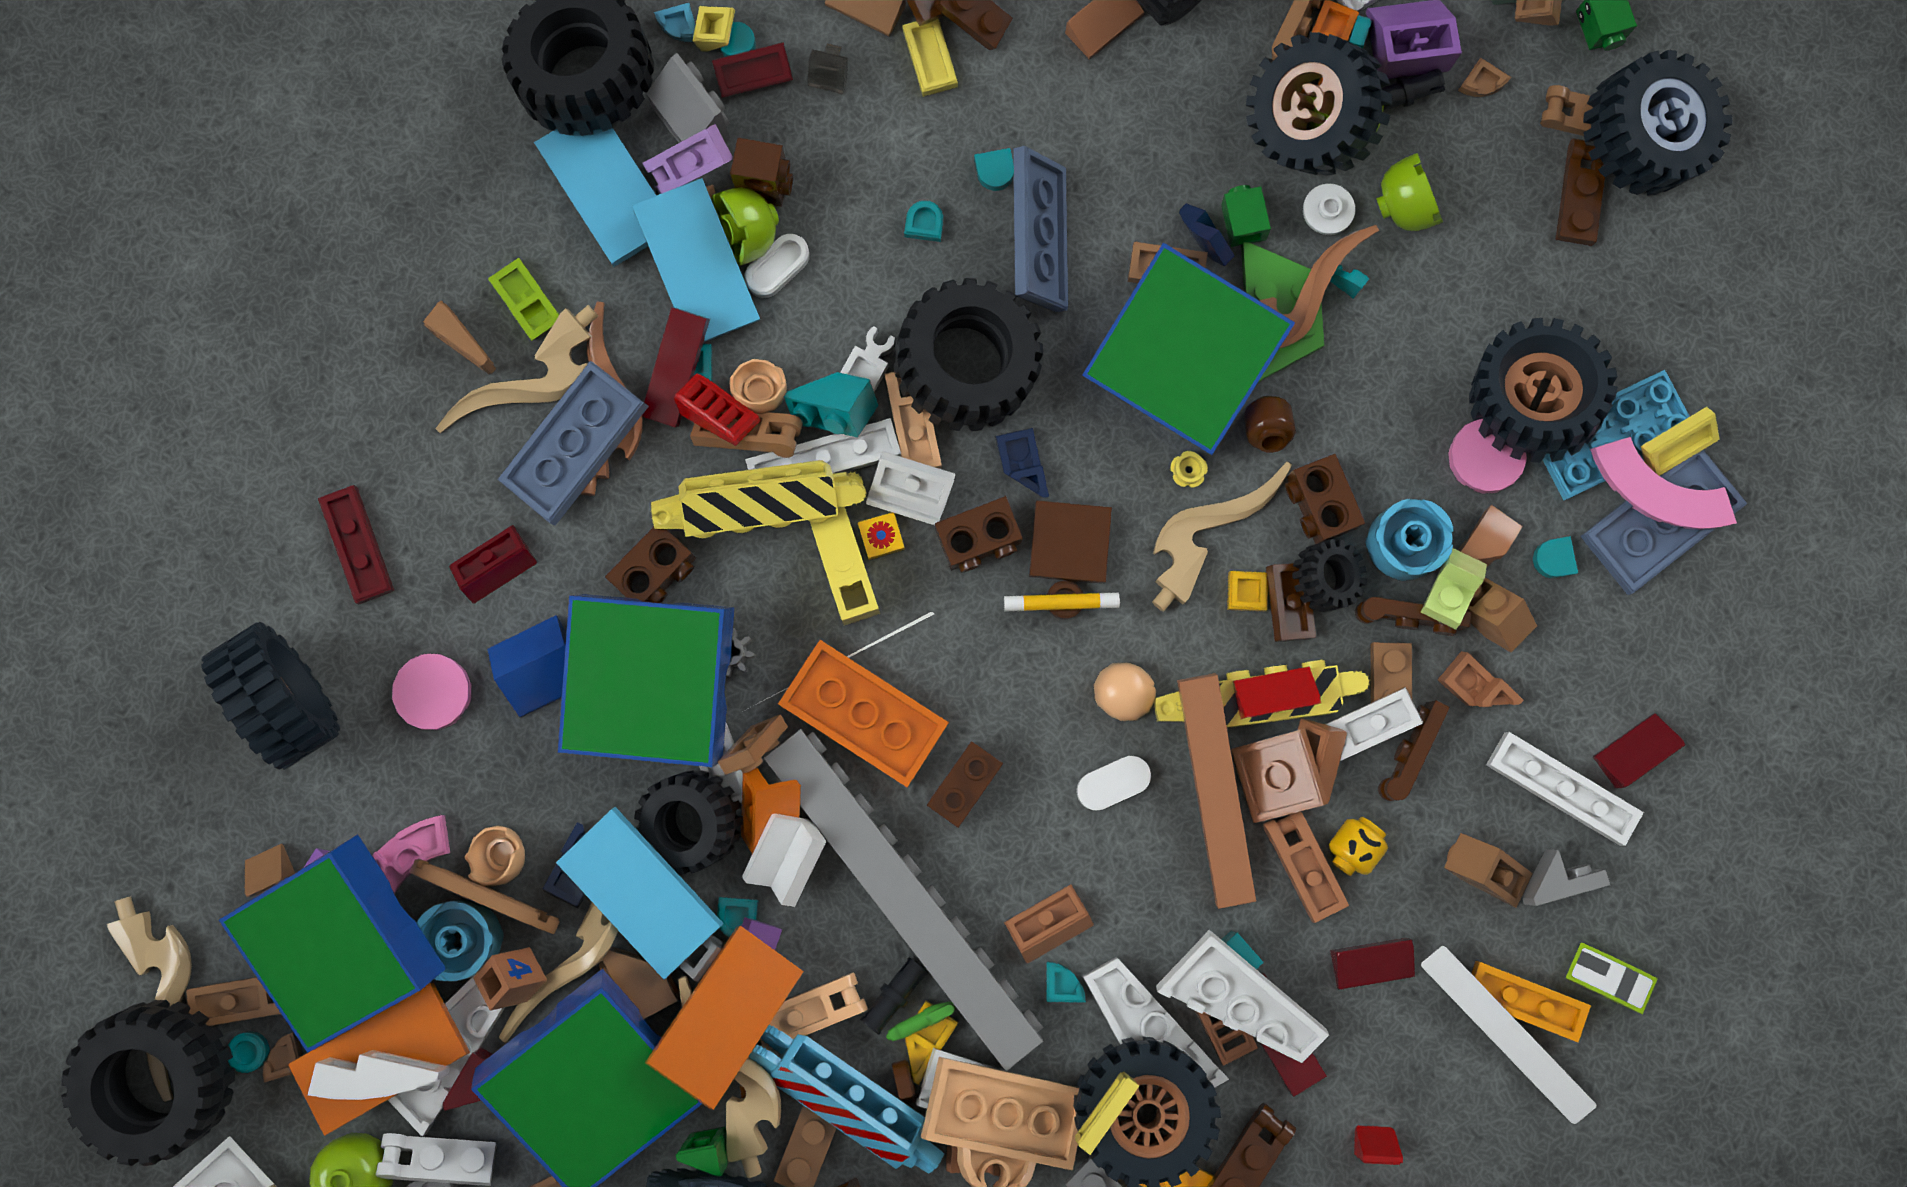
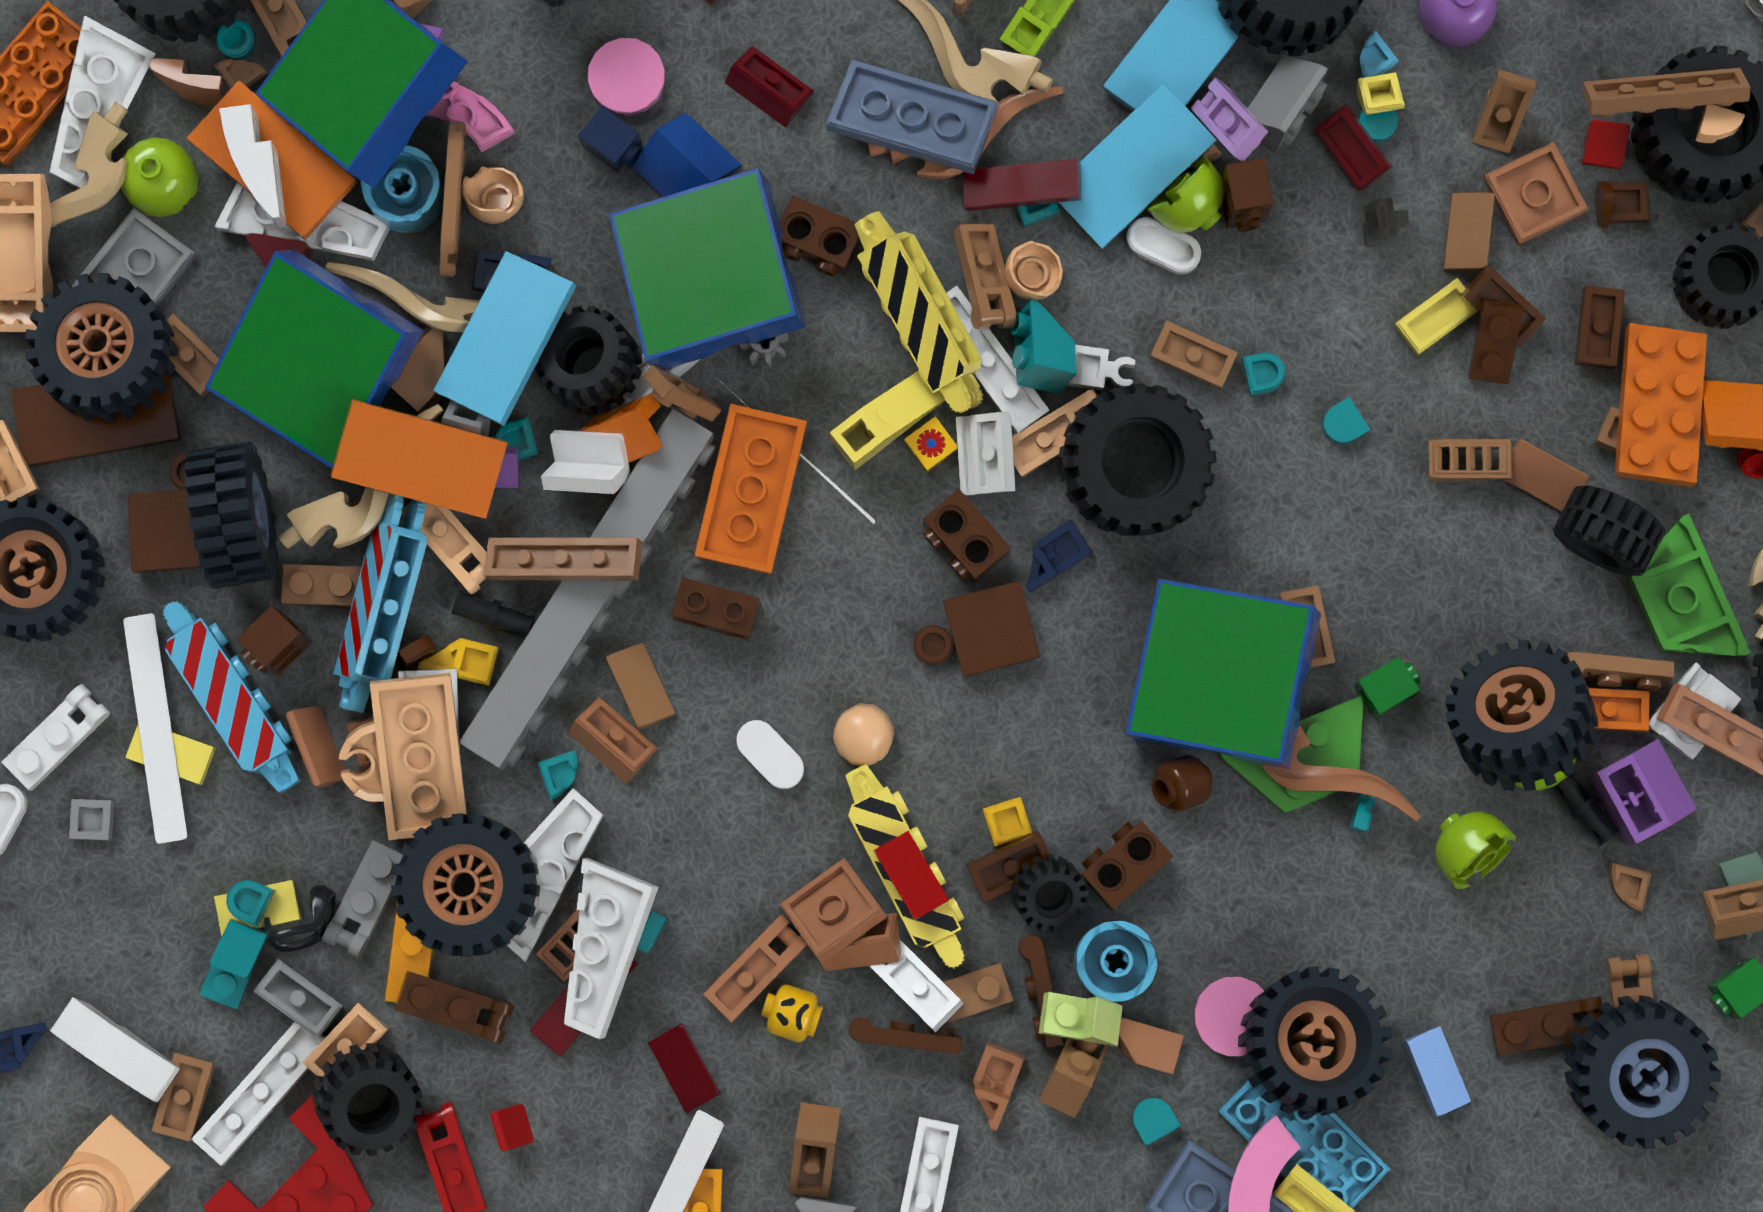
camera: 75 degrees right, 0 degrees up
(278, 1110) = (194, 88): none -> nougat slope
(438, 1160) = (198, 249): white plate -> none
(486, 726) = (611, 140): none -> dark blue brick
(509, 978) = (385, 250): nougat brick -> none
(699, 393) = (1002, 217): red slope -> none
(705, 1151) = (289, 488): green slope -> none
(869, 911) = (563, 558): none -> medium nougat plate
(887, 275) = (1193, 355): none -> medium nougat plate
(929, 1017) = (483, 653): bright green piece -> none
(1009, 880) = (640, 686): none -> medium nougat slope
(1040, 230) = (1292, 487): sand blue tile -> none
(1056, 100) = (1453, 446): none -> medium nougat slope
(1061, 601) = (928, 640): yellow bar -> none
(1106, 1112) = (452, 837): light yellow tile -> none
(1178, 533) = (1041, 732): tan piece -> none
(1192, 460) = (1118, 717): light yellow plate -> none
(1206, 234) = (1356, 651): dark blue slope -> none
(1216, 790) = (796, 852): nougat tile -> none
(1328, 209) = (1429, 771): white piece -> none
(1360, 31) = (1622, 738): teal tile -> none
(1592, 300) = (1436, 1071): none -> light blue slope

